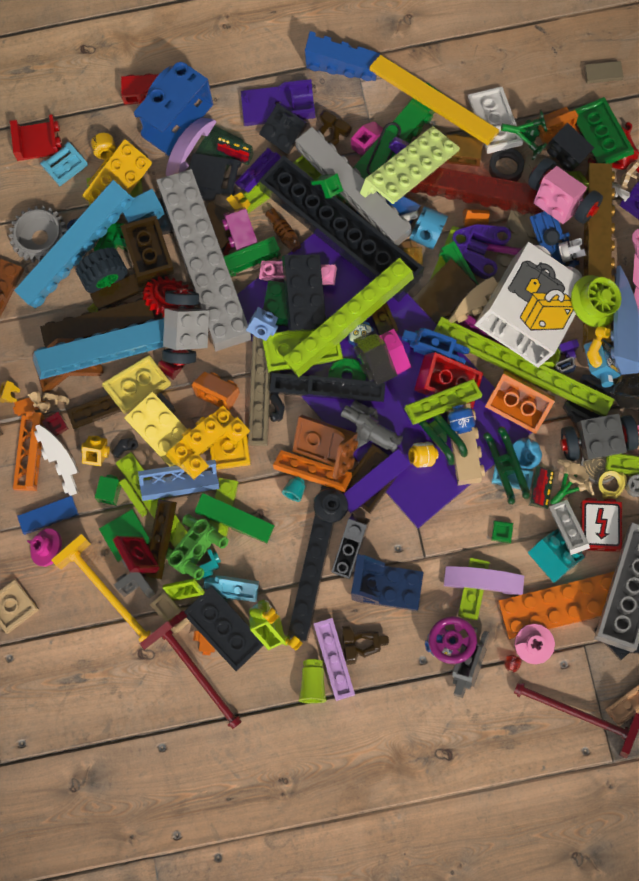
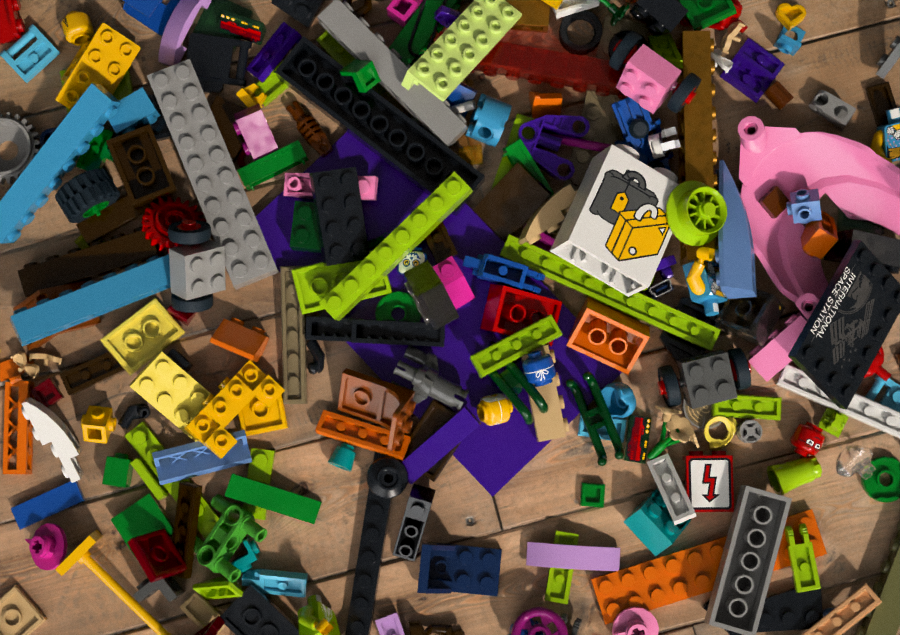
camera: 10 degrees left, 10 degrees up
(262, 324) = (291, 259): medium blue brick -> none

